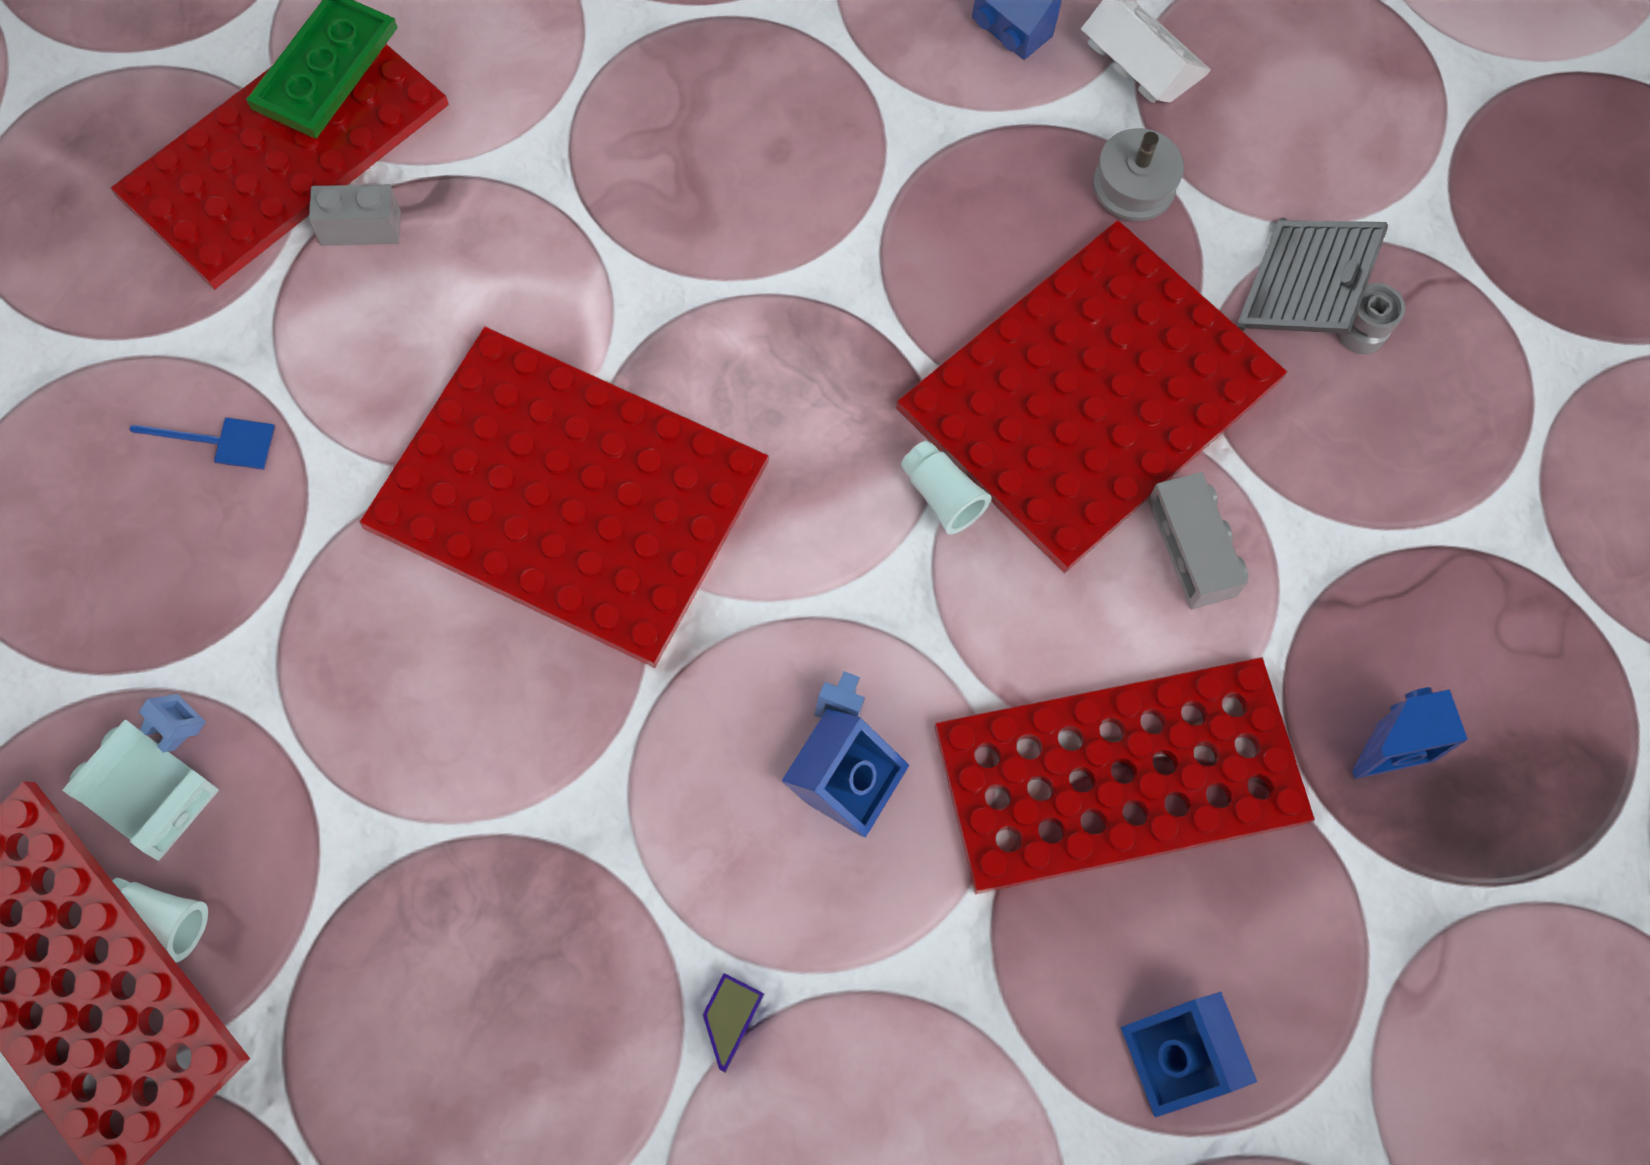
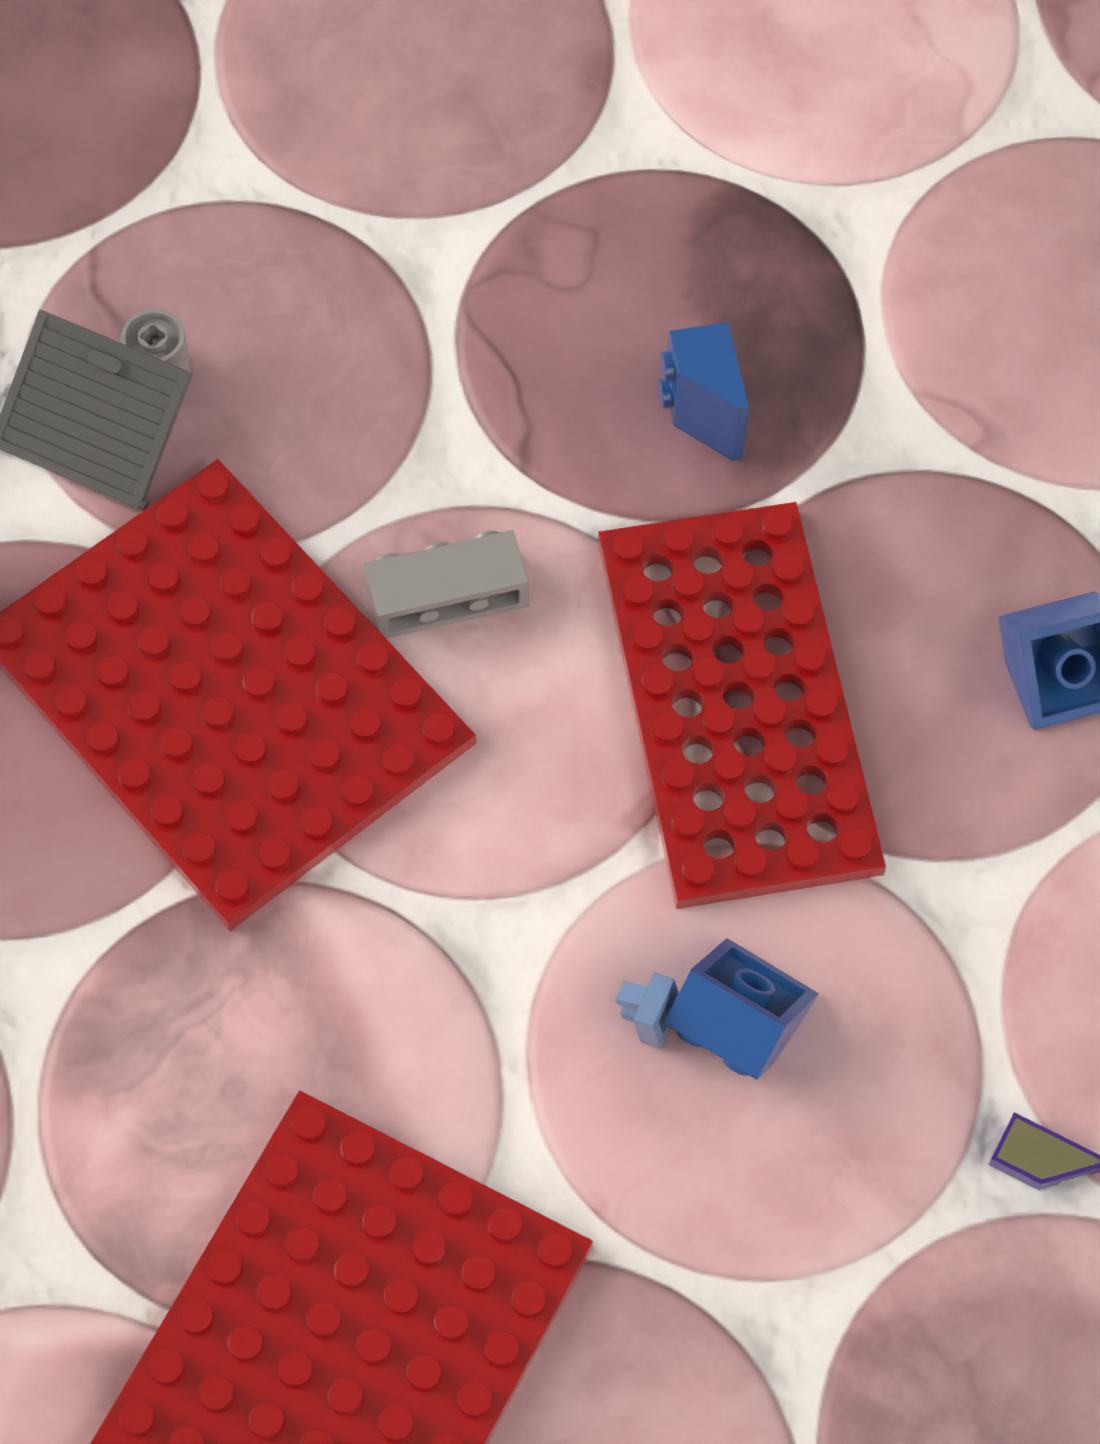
camera: 85 degrees left, 5 degrees down
(945, 487) = (360, 869): light aqua plant -> none

